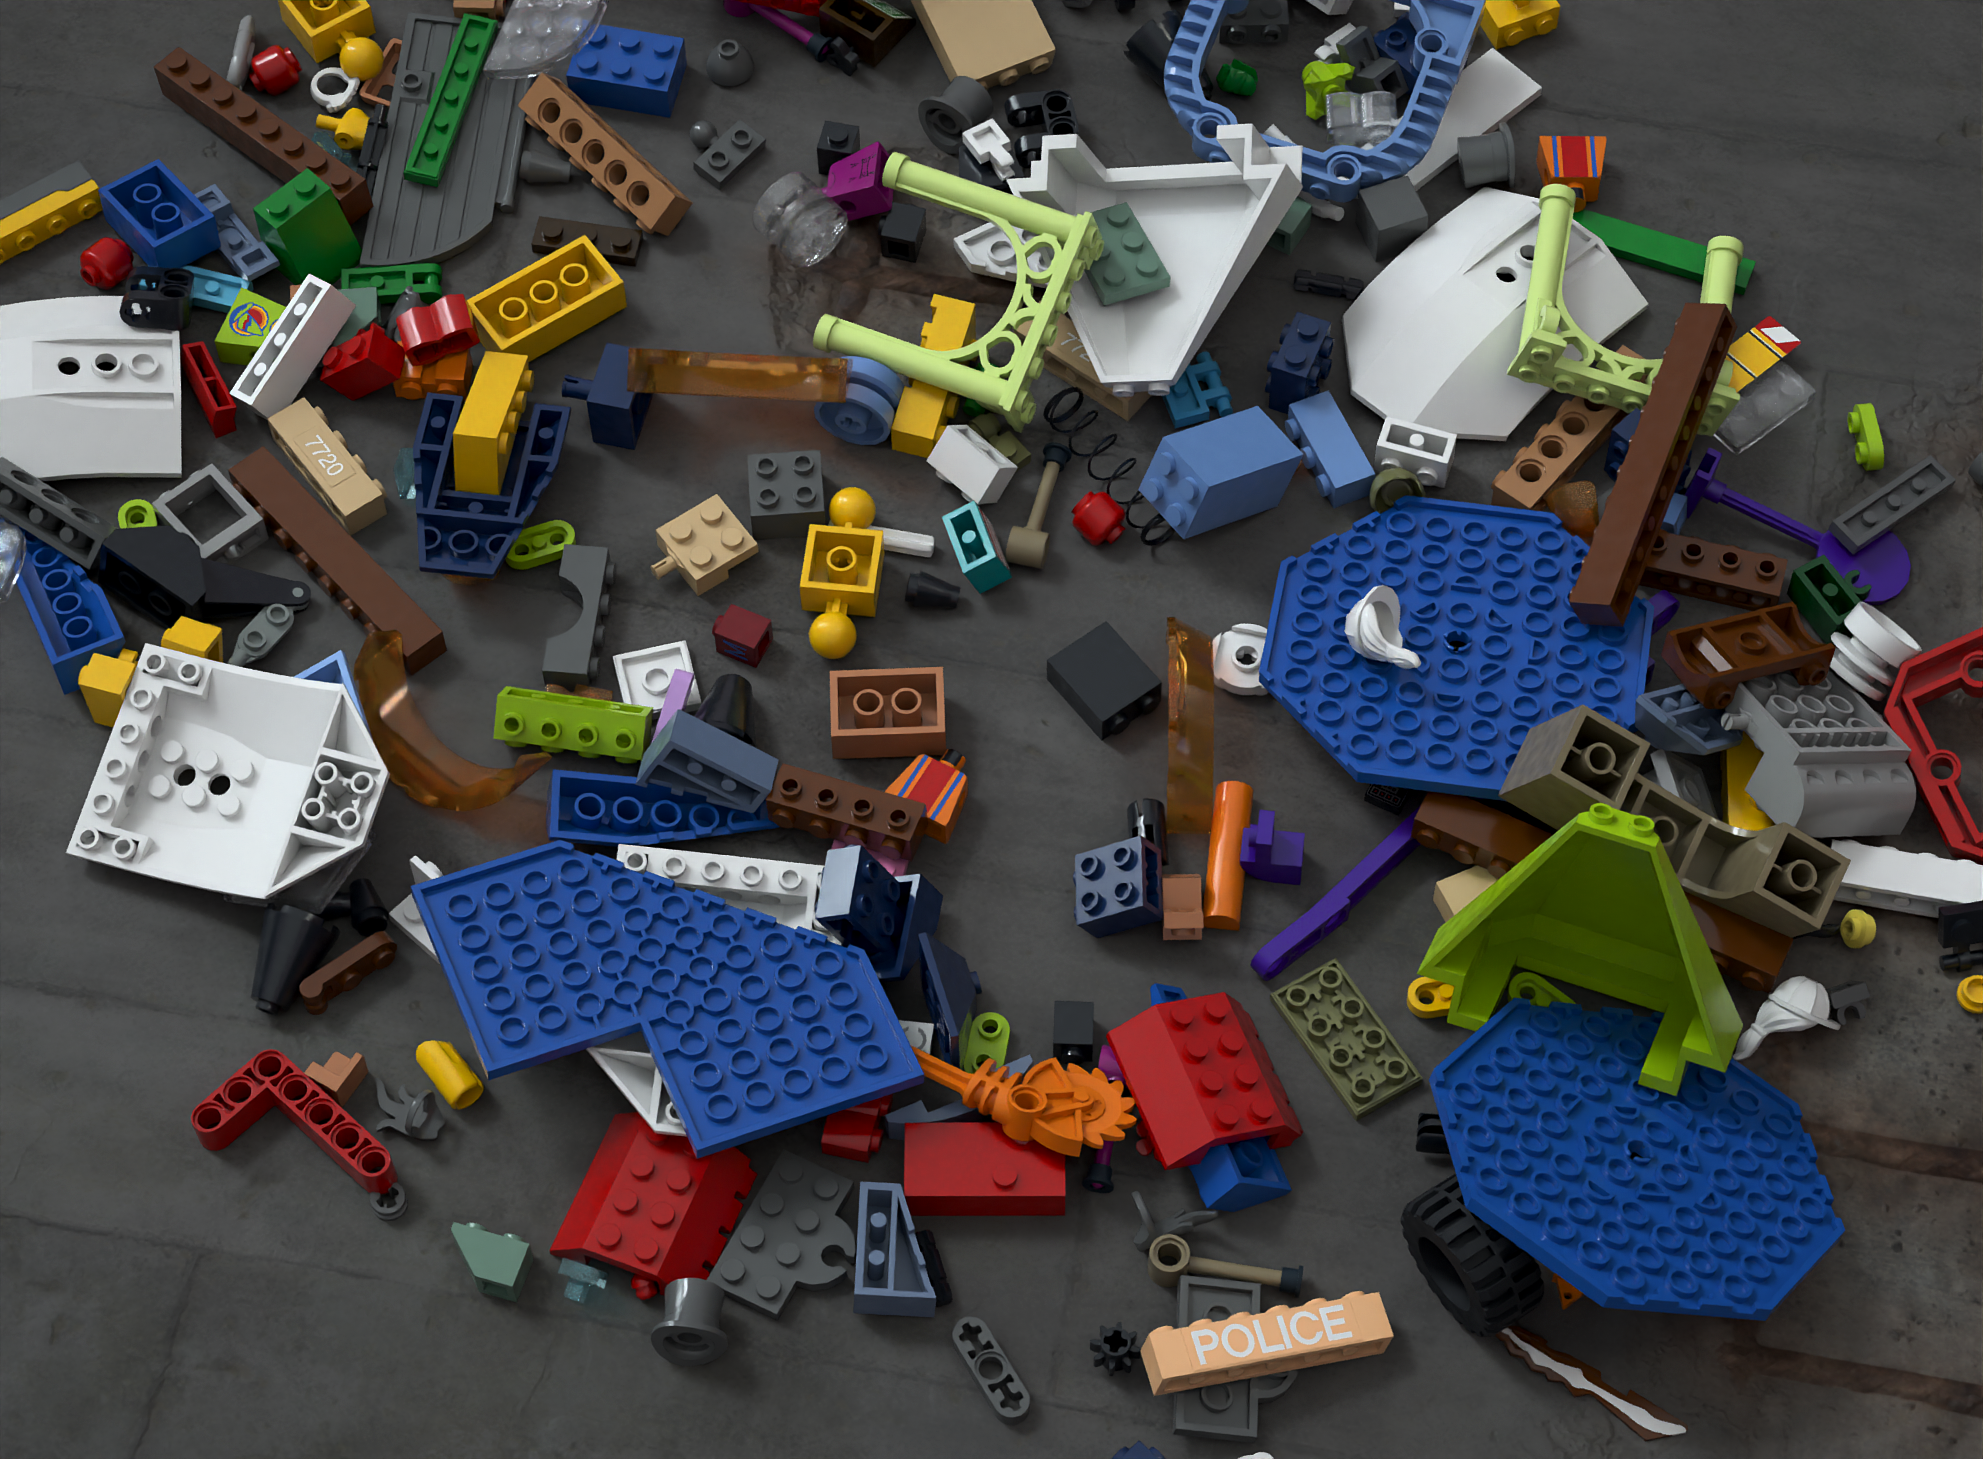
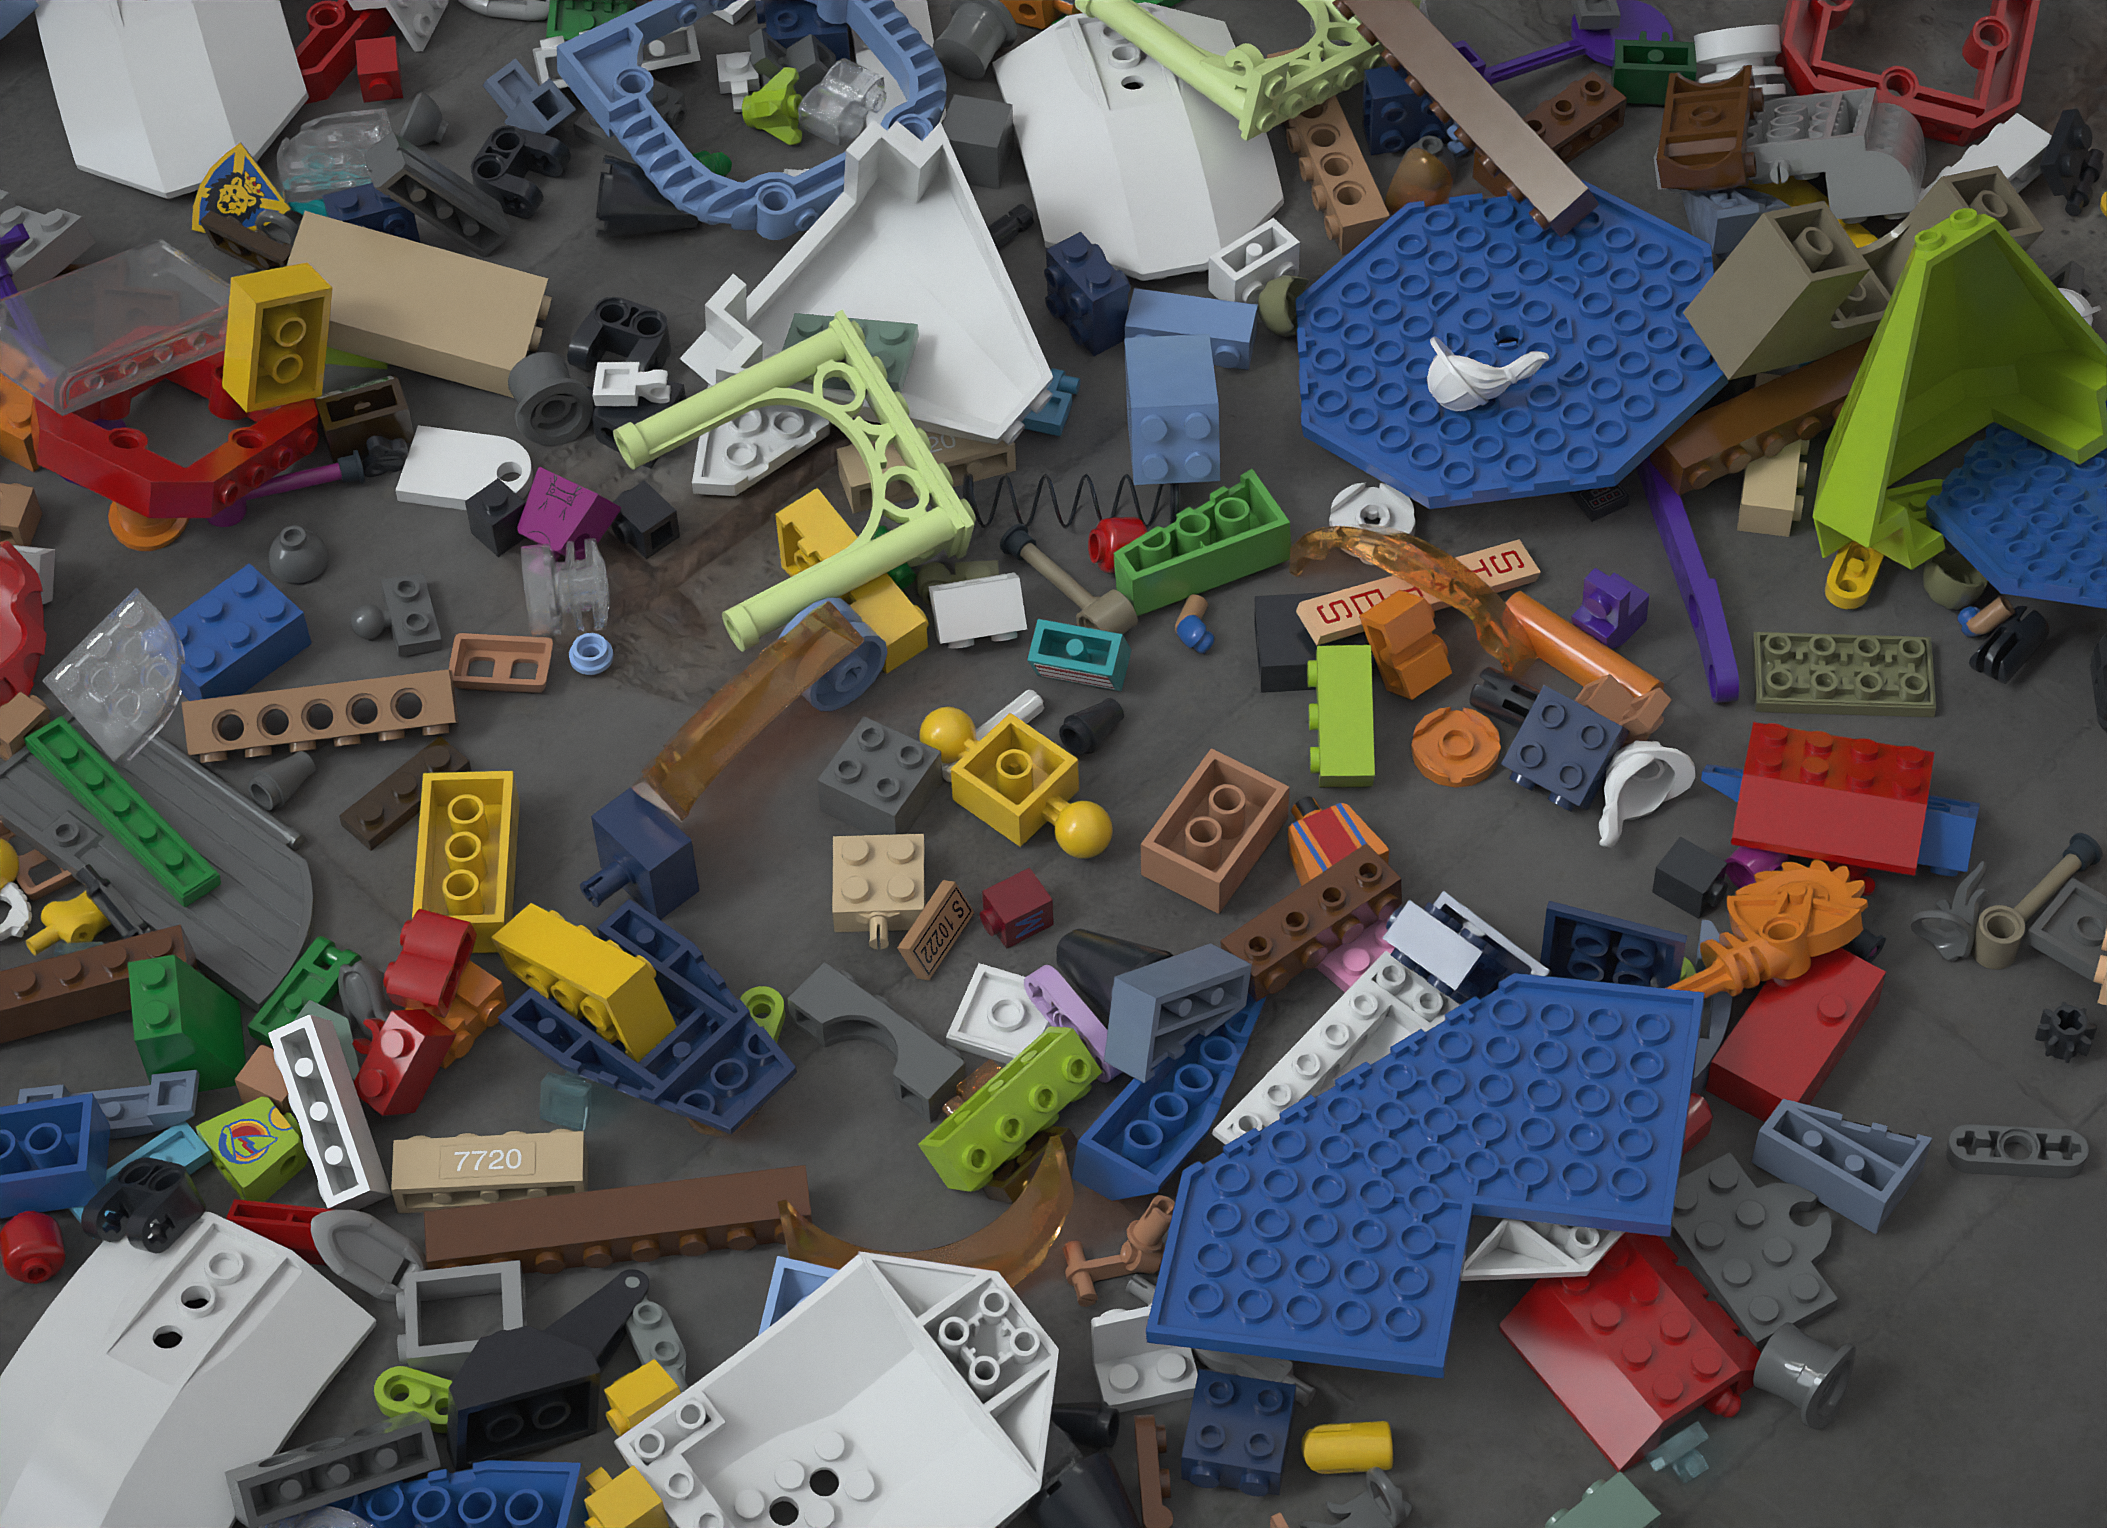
camera: 55 degrees left, 5 degrees down
(212, 430) = (365, 1251): none -> light grey piece
(411, 1001) = (1238, 1433): none -> dark blue brick
(484, 842) = (1139, 1254): none -> nougat pin
(559, 760) = (1015, 1174): none -> dark brown plate
(690, 598) = (935, 930): none -> medium nougat tile
(740, 225) = (505, 653): none -> nougat piece
(772, 264) = (589, 645): none -> light blue plate
(873, 102) = (454, 465): none -> white tile
(1041, 734) = (1342, 716): none -> lime brick
(1068, 599) = (1190, 625): none -> blue arm
(1086, 821) = (1456, 747): none -> orange tile
(1127, 951) = (1639, 783): none -> white piece
(1130, 568) = (1205, 547): none -> bright green wedge
(1133, 736) = (1404, 644): none -> orange brick
(1232, 741) = (1338, 613): none -> light nougat tile

